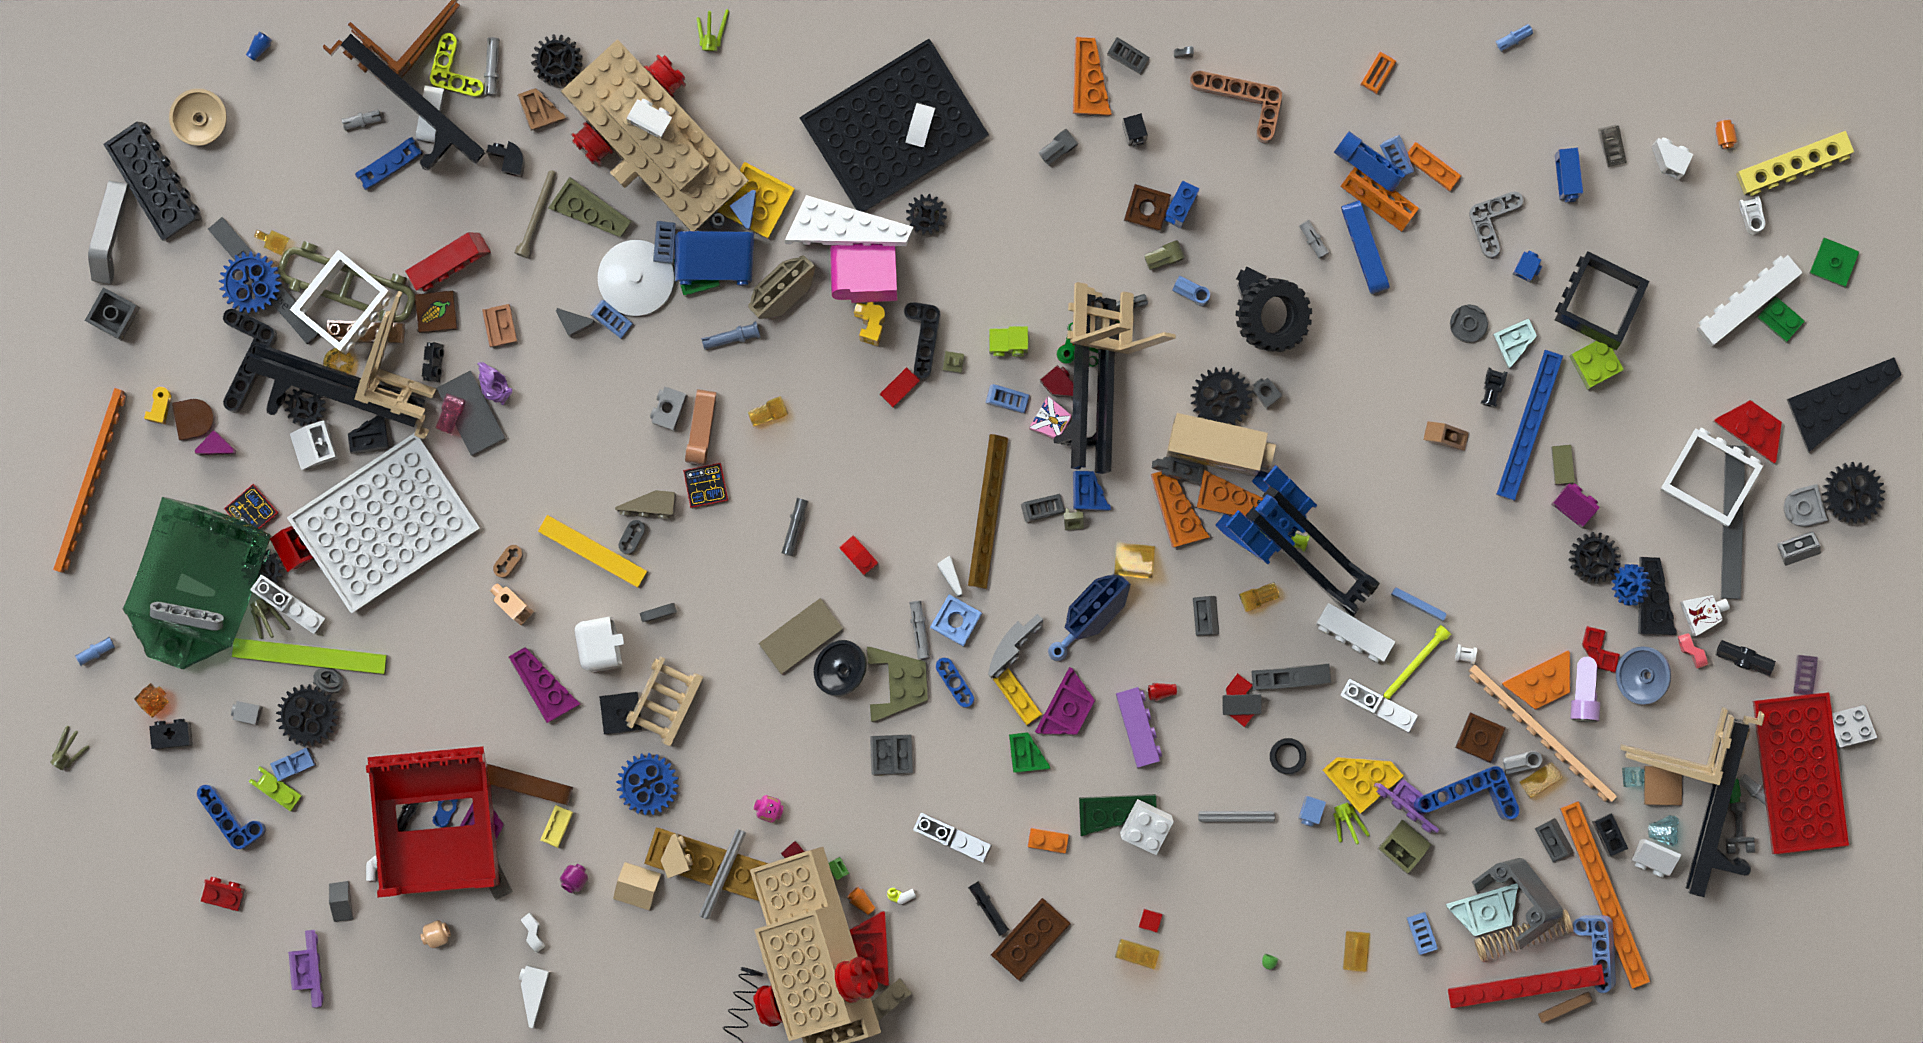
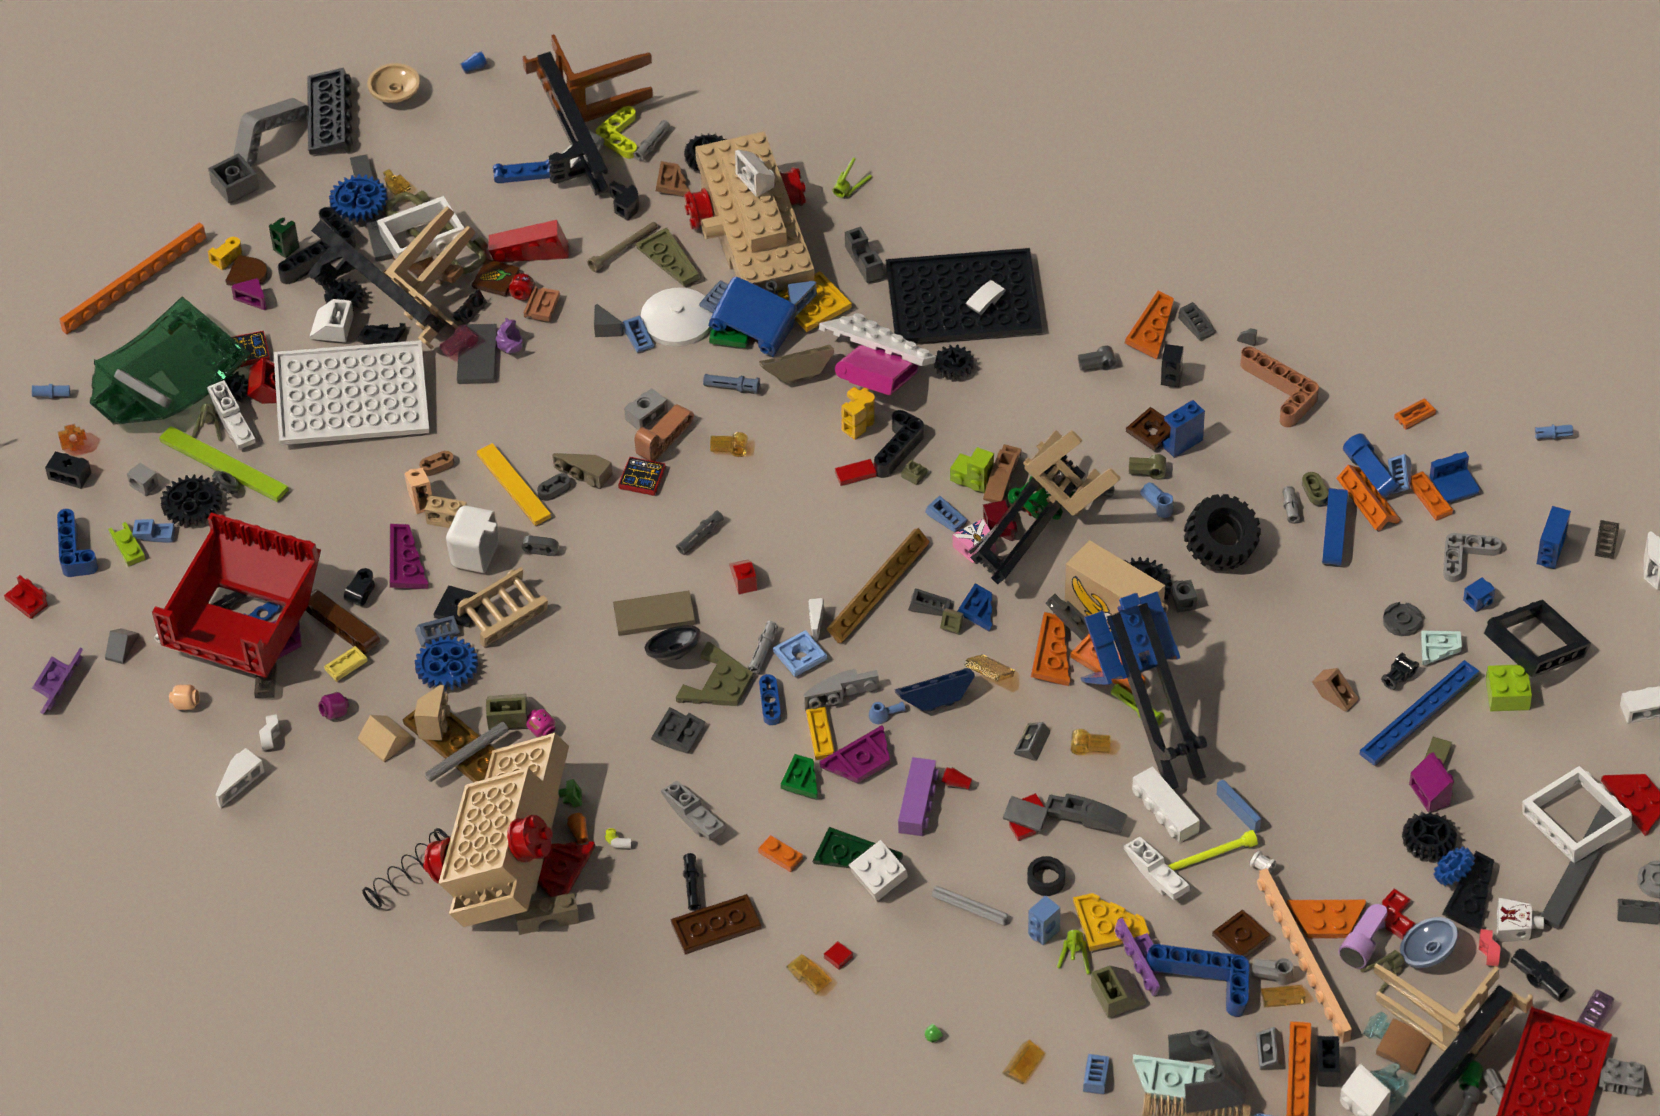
camera: 25 degrees right, 35 degrees down
(210, 368) = (284, 237): none -> dark green hinge
(361, 120) = (523, 136): light grey pin -> none
(469, 315) = (521, 286): none -> red head
(522, 743) = (360, 587): none -> black piece
(552, 618) = (442, 511): none -> tan brick
(614, 747) = (420, 630): none -> sand blue slope
(729, 807) = (507, 709): none -> olive slope
(776, 124) = (866, 261): none -> dark grey arch
(1037, 329) = (1001, 473): none -> medium nougat slope
(1327, 209) = (1316, 491): none -> olive plate
(1449, 140) = (1453, 478): none -> blue bracket
(1618, 705) = (1390, 962): none -> olive plant

